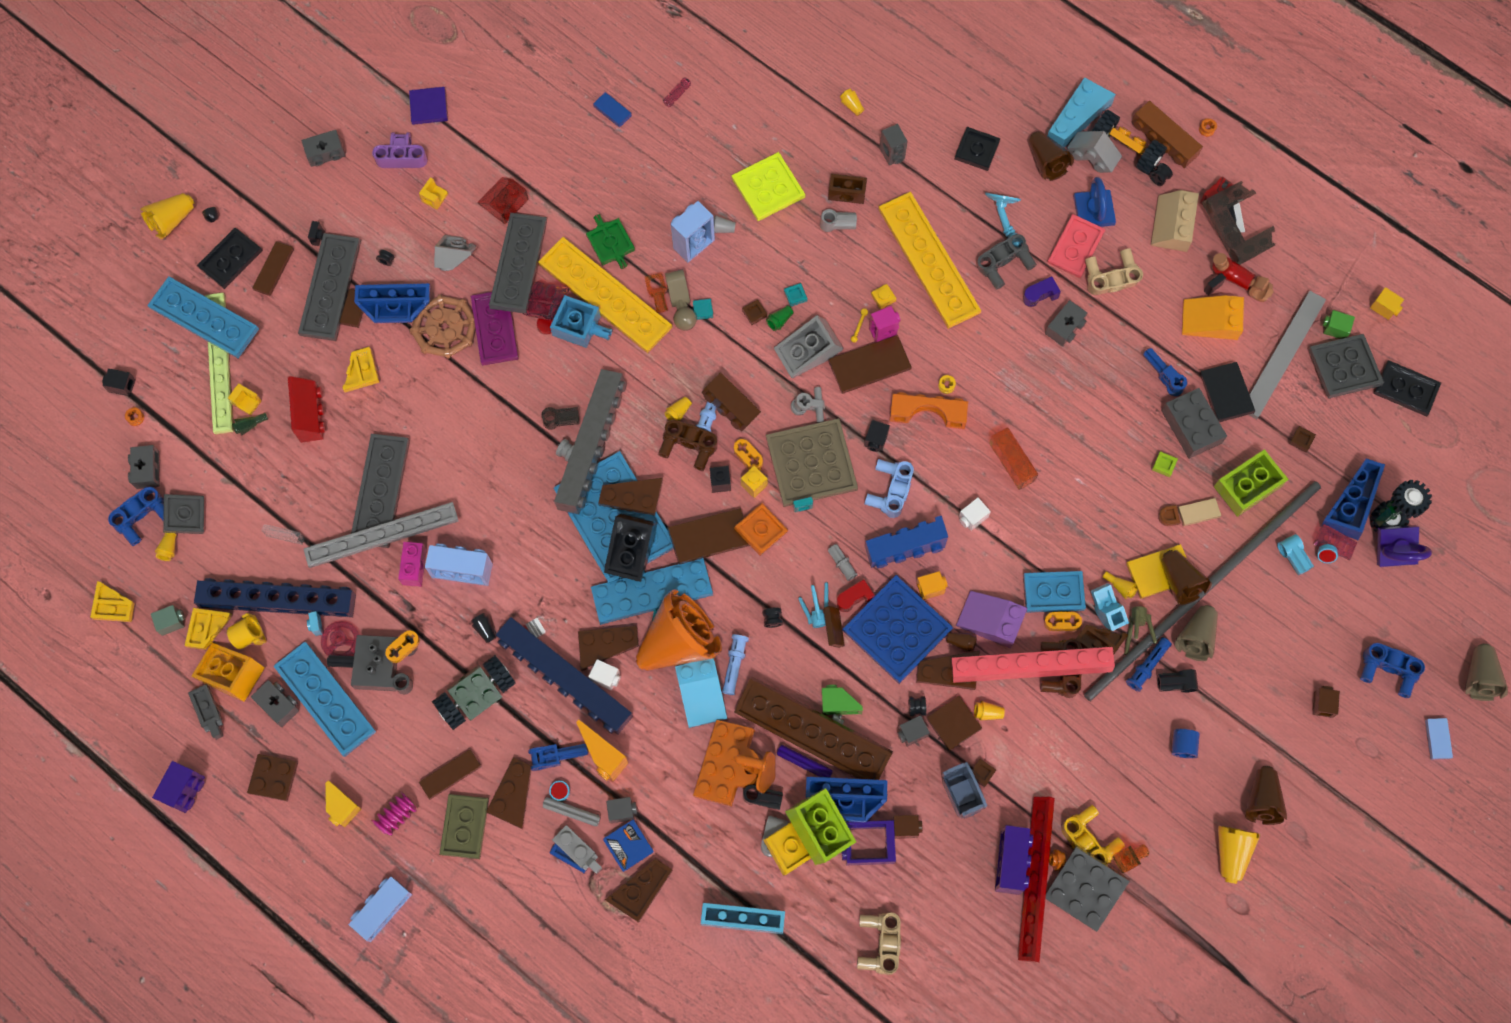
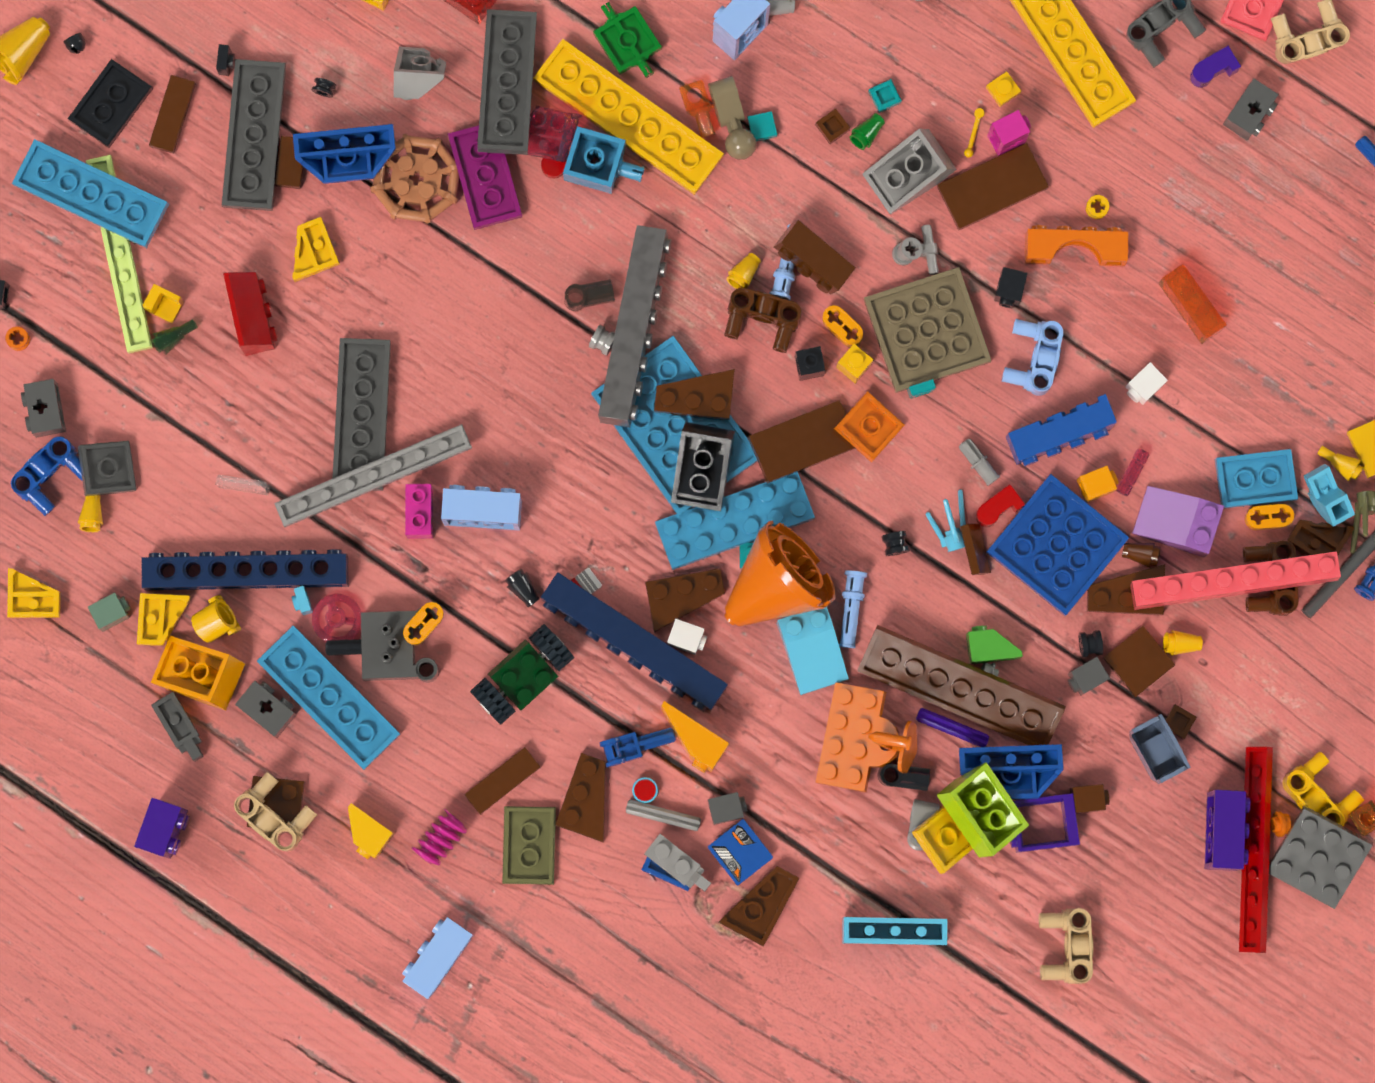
camera: 10 degrees left, 10 degrees up
(261, 789) = (266, 821): none -> tan piece
(959, 579) = (1132, 472): none -> clear pink axle

